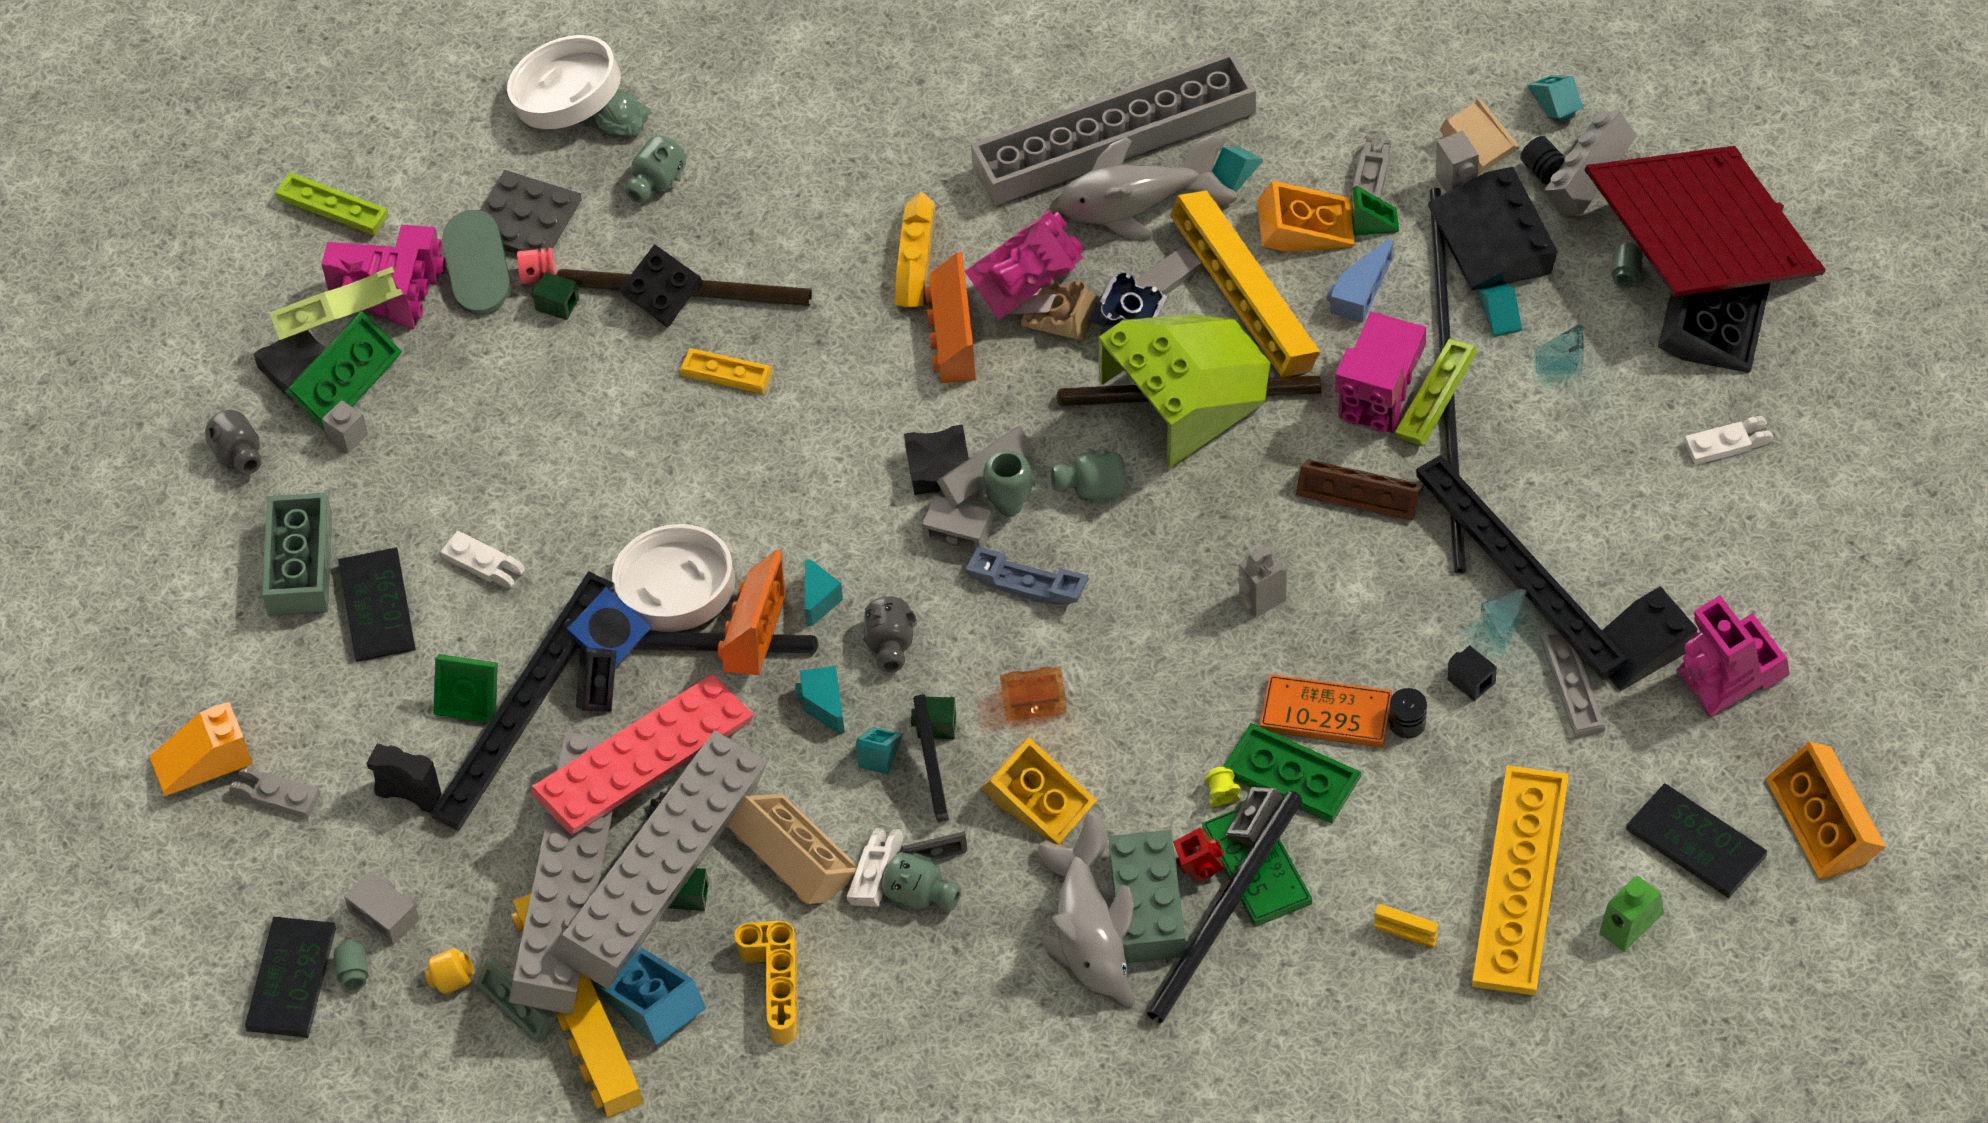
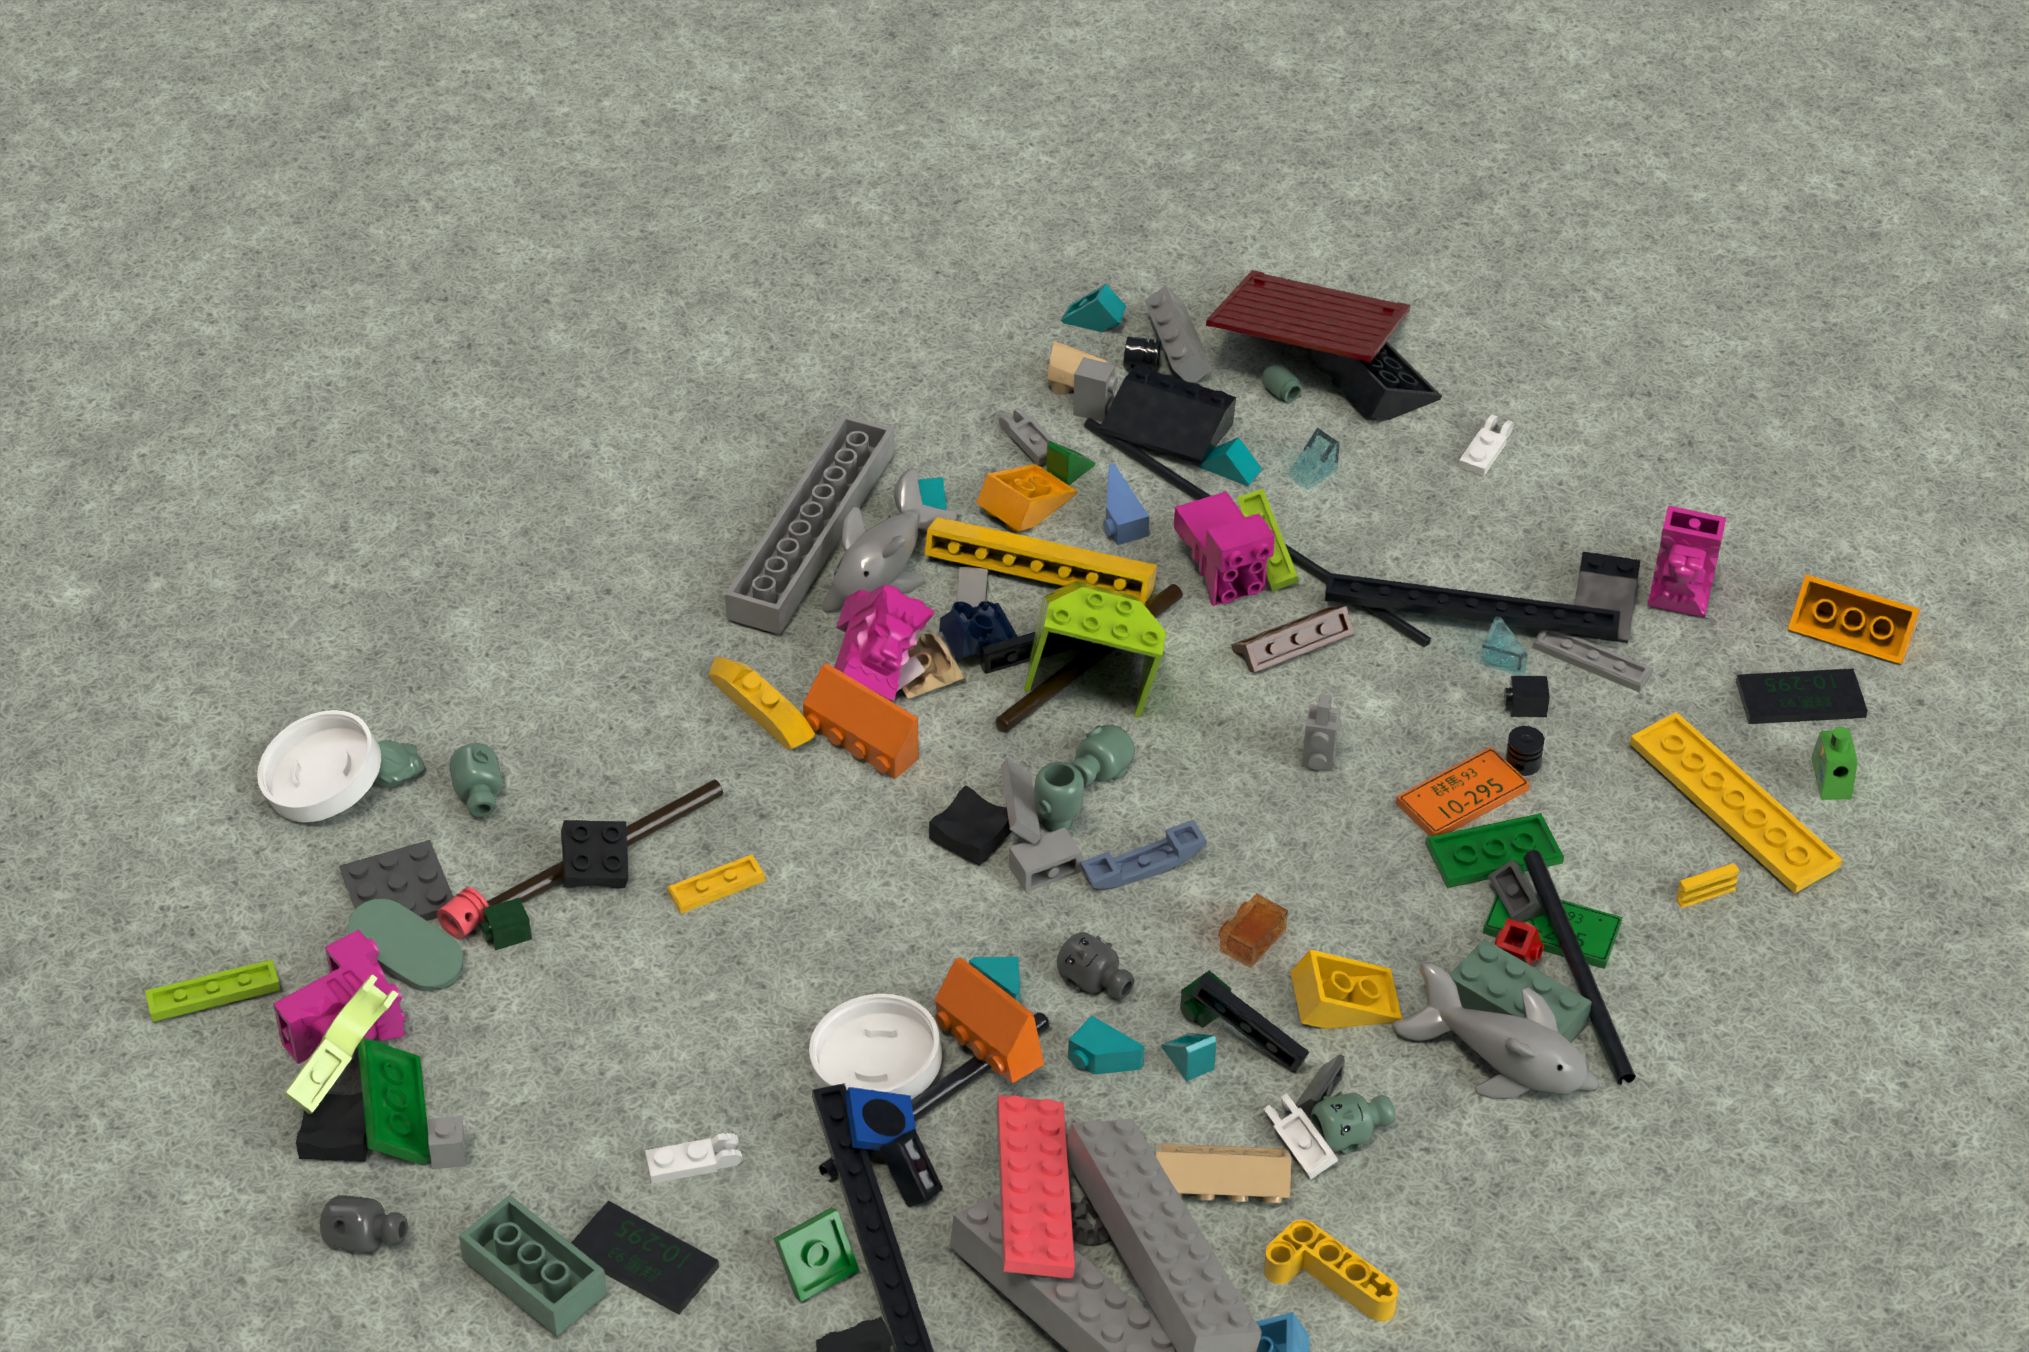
camera: 50 degrees left, 10 degrees down
(1222, 787) = (1466, 891): neon yellow brick -> none

